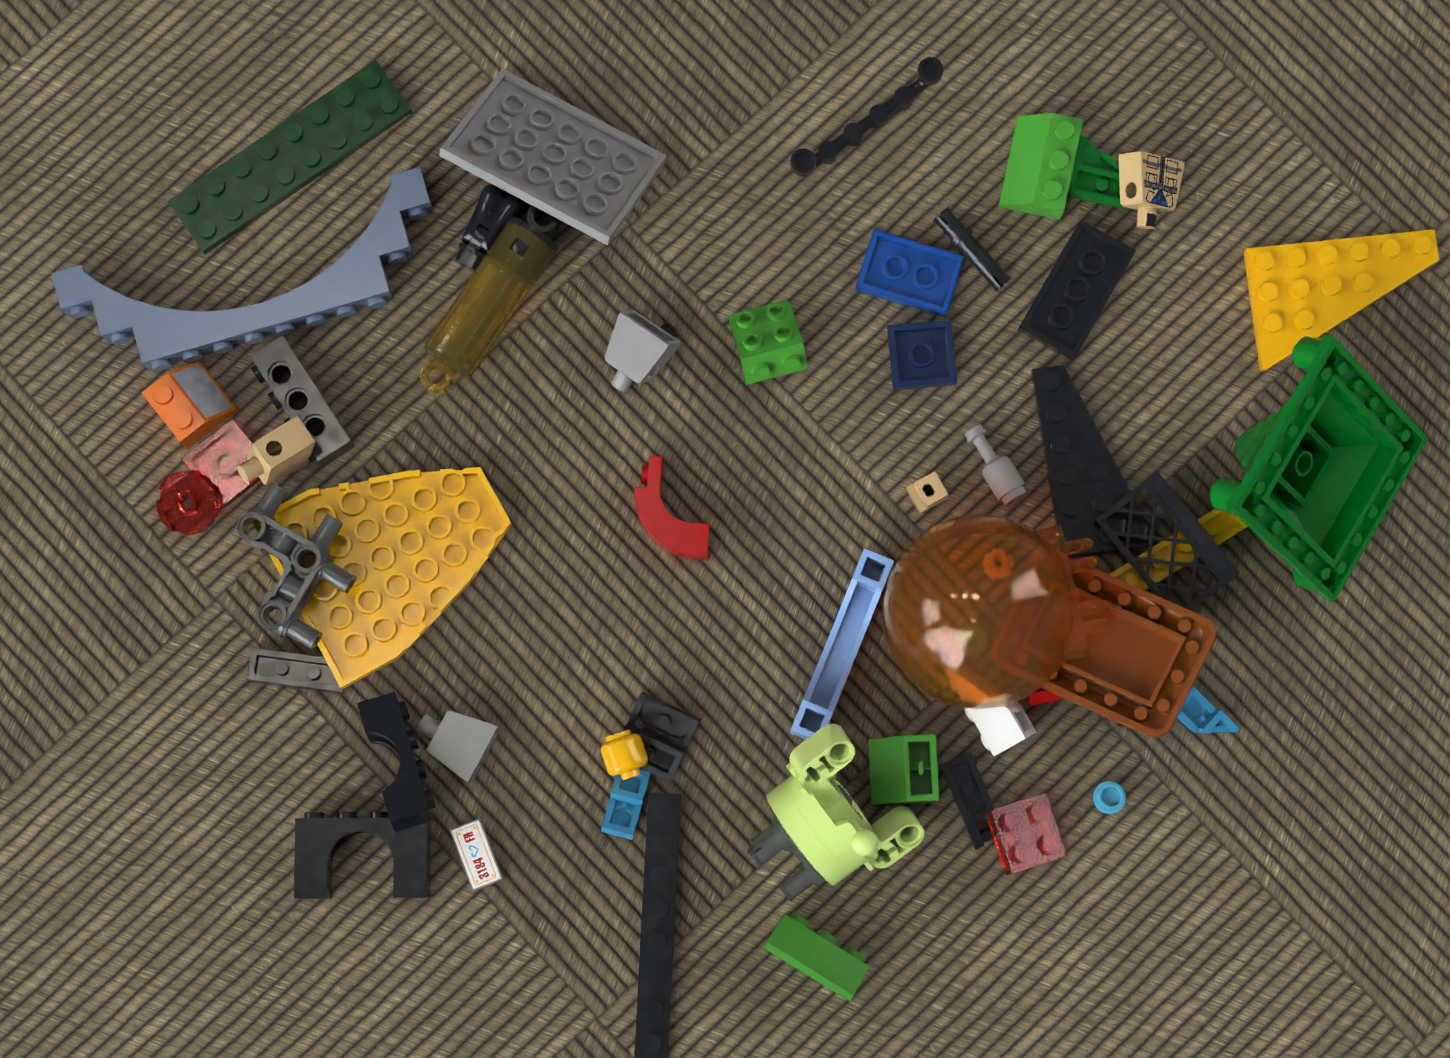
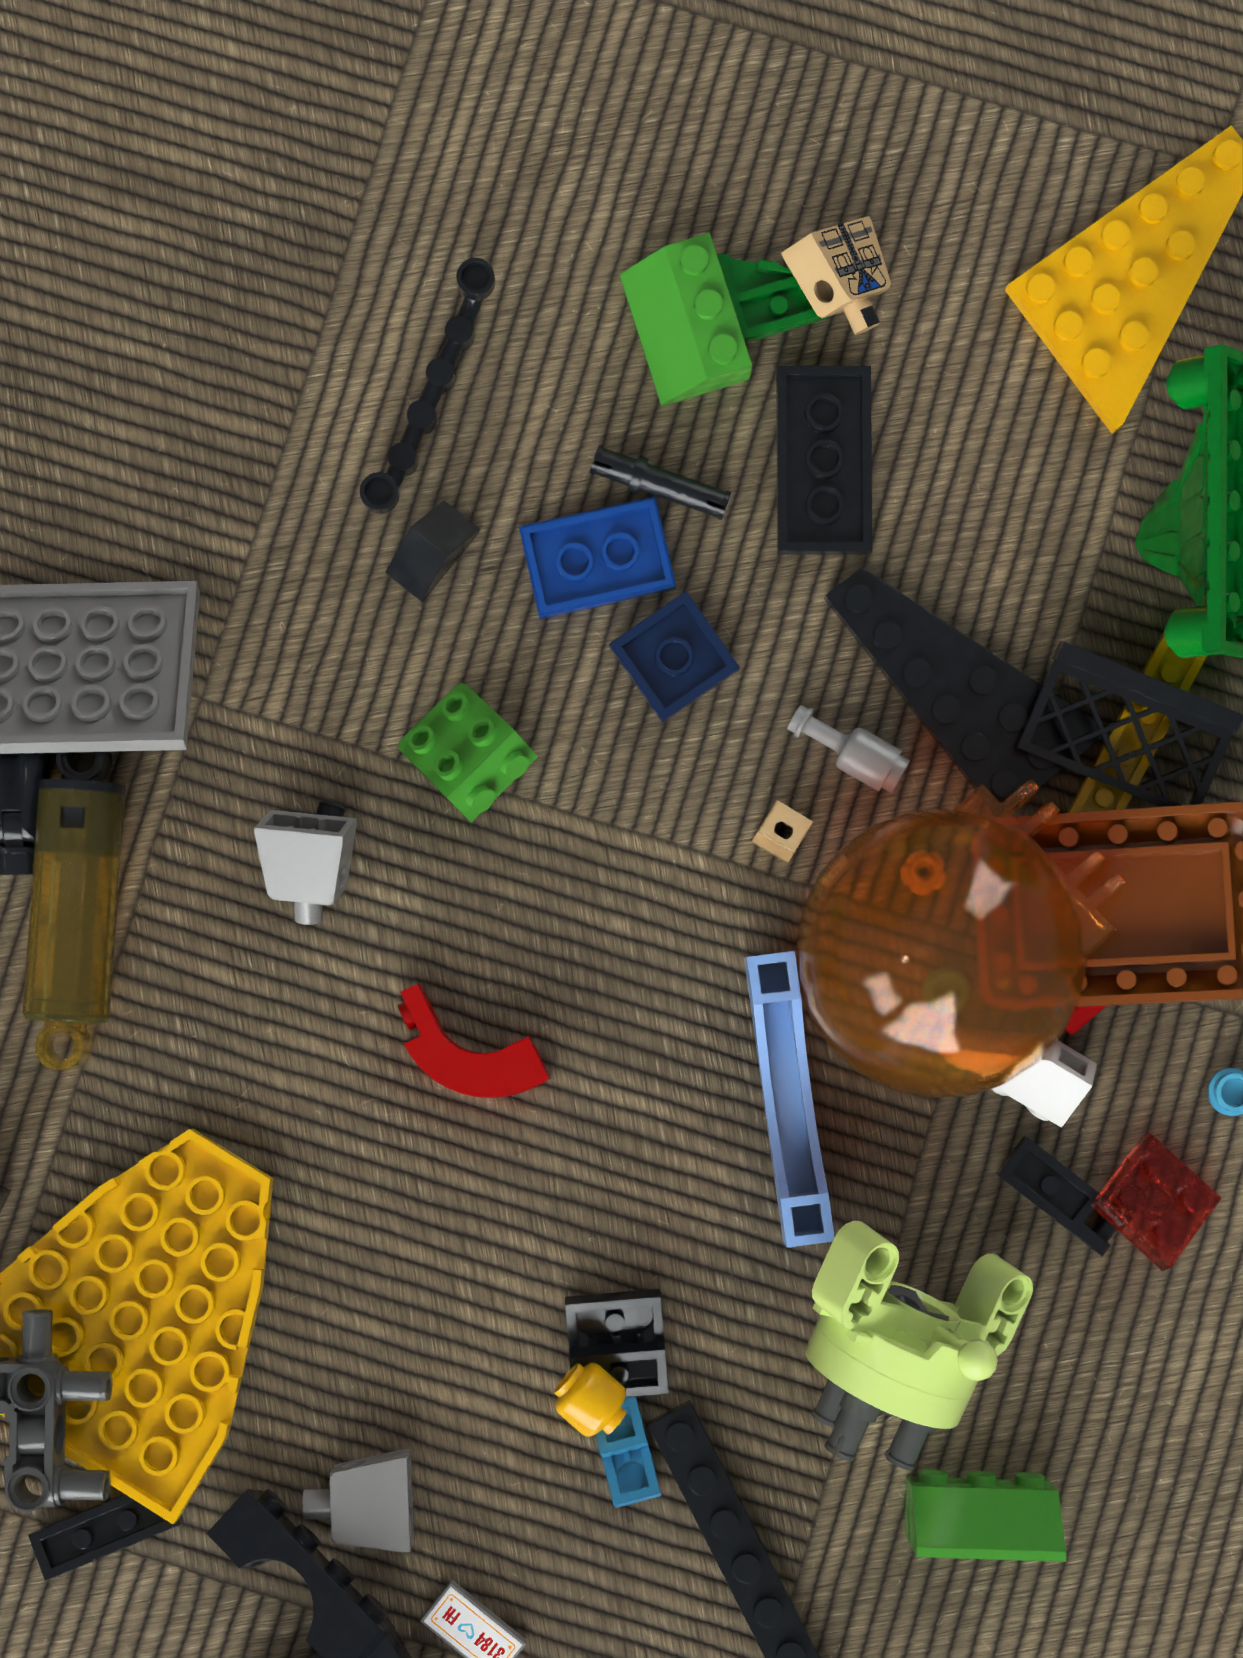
camera: 30 degrees left, 5 degrees up
(814, 213) = (431, 549): none -> black slope
(903, 770) = (957, 1210): bright green slope -> none

